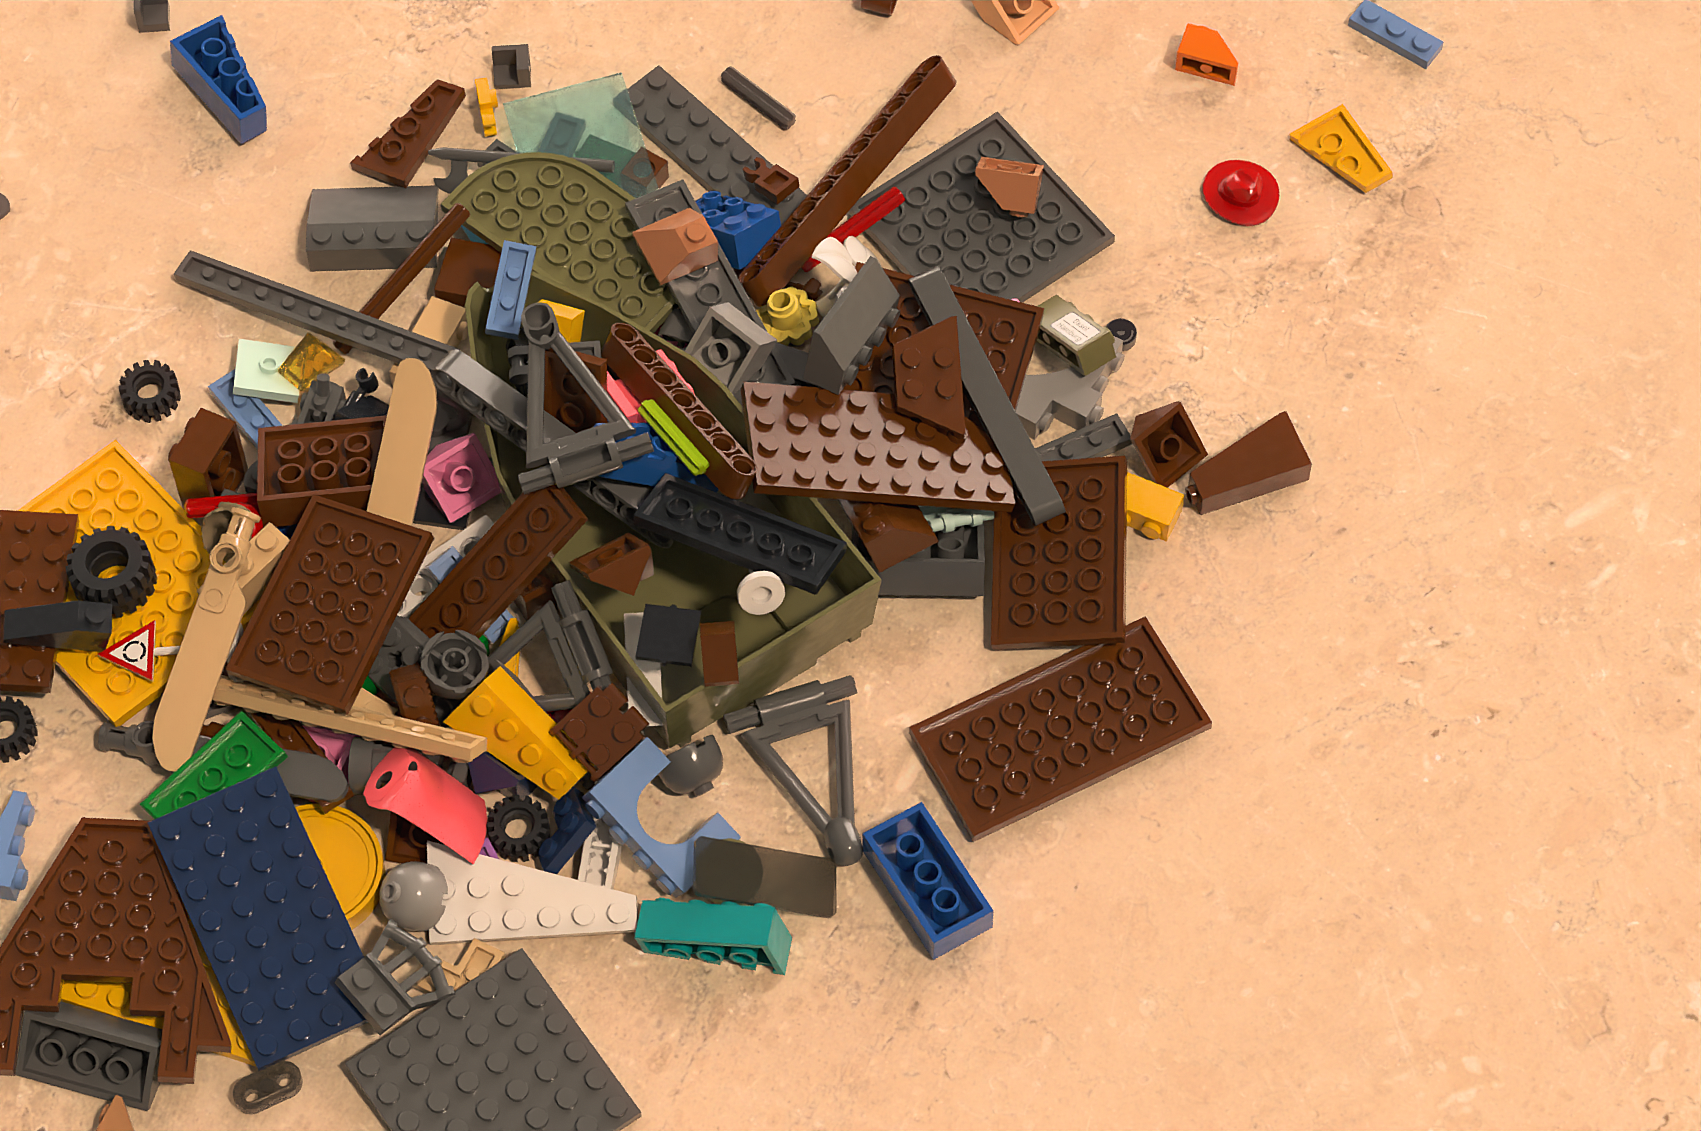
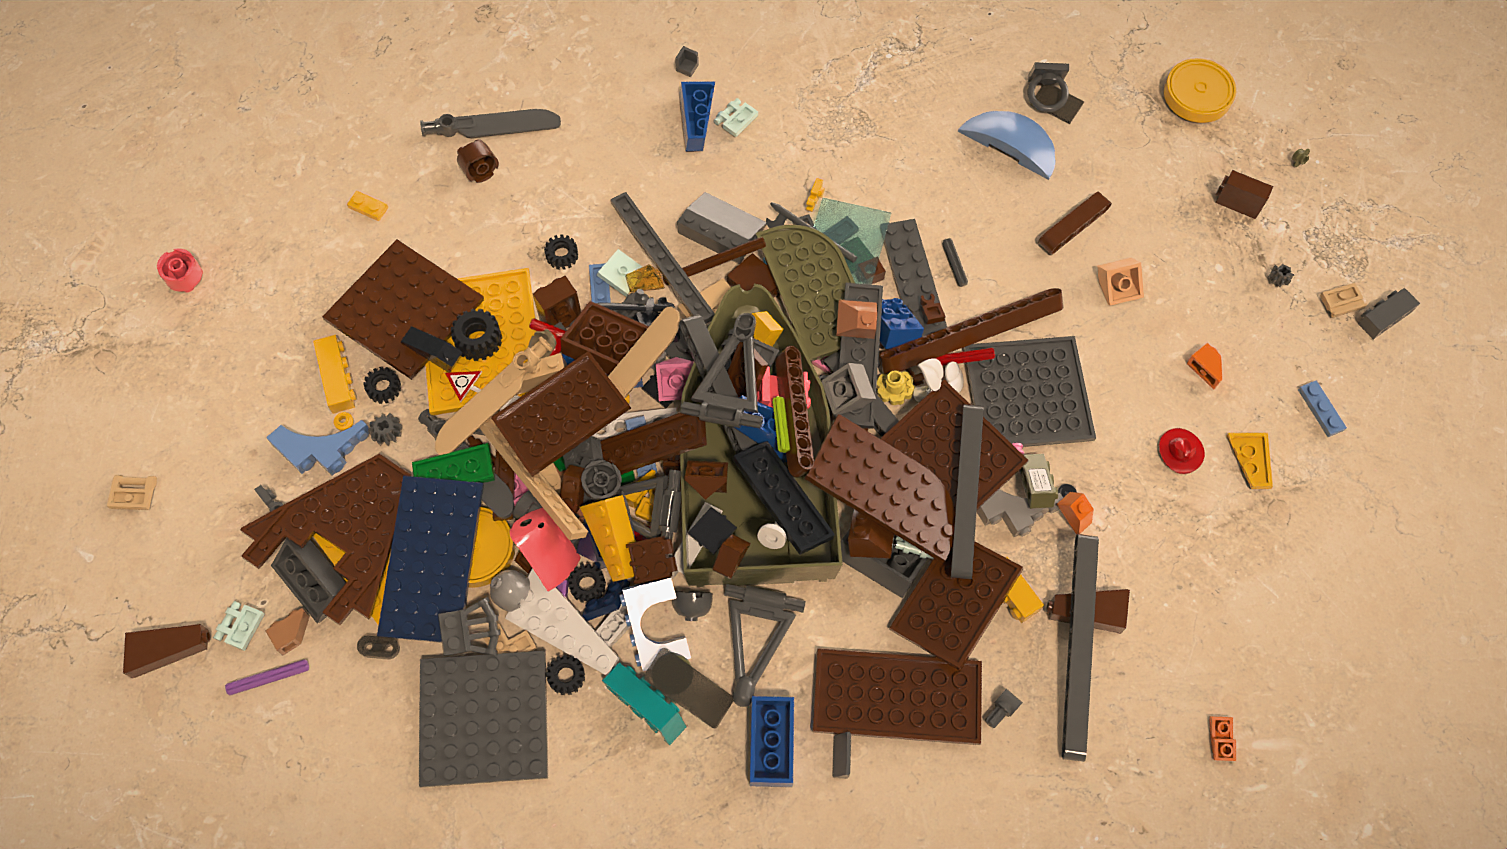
camera: 30 degrees right, 5 degrees up
(43, 786) = (385, 429): none -> dark grey gear
(294, 54) = (739, 120): none -> light aqua plate
(351, 393) = (649, 307): none -> black sword
(407, 143) = (760, 195): reddish brown wing -> none
(510, 290) = (752, 296): medium blue plate -> none
(511, 66) = (841, 181): dark grey panel -> none
(539, 674) = (645, 508): none -> yellow plate
(568, 947) = (568, 687): none -> black tyre
(852, 328) = (914, 416): dark grey slope -> none
(930, 377) = (941, 465): reddish brown wing -> none
(1011, 184) = (1056, 379): nougat slope -> none
(1034, 846) = (841, 755): none -> dark grey slope
(1088, 442) = (1009, 544): dark grey plate -> none
(1150, 346) = (1076, 511): none -> orange slope
(1167, 443) = (1052, 570): reddish brown slope -> none
(1213, 658) = (1005, 706): none -> dark grey axle
(1266, 520) = (1080, 648): none -> dark grey beam
(1521, 537) = (1222, 738): none -> orange slope

